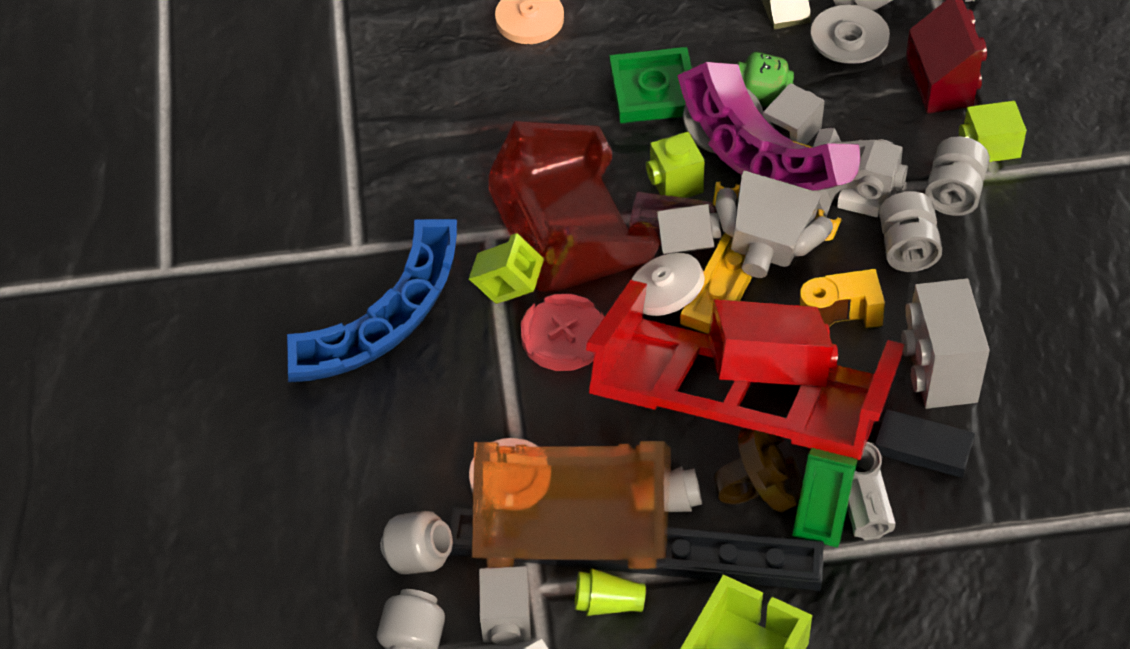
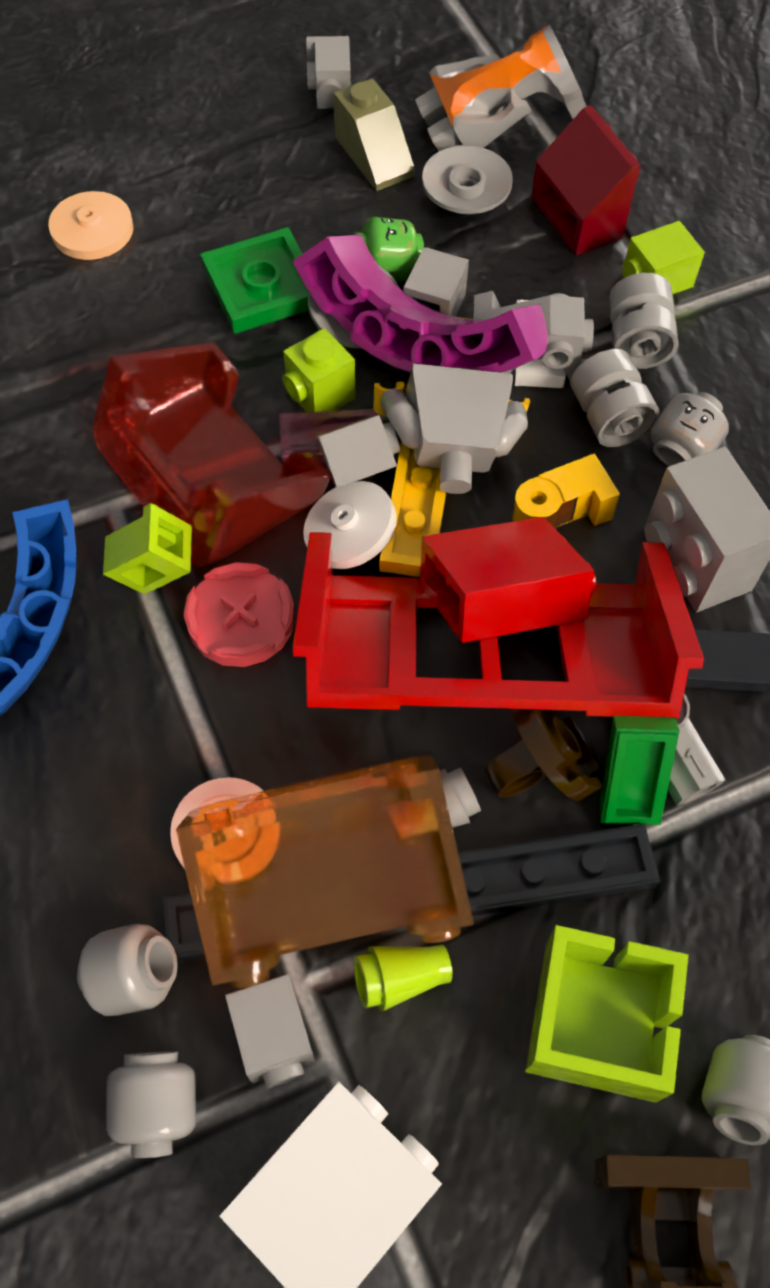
camera: 20 degrees left, 10 degrees up
(967, 260) = (689, 428): none -> light grey head

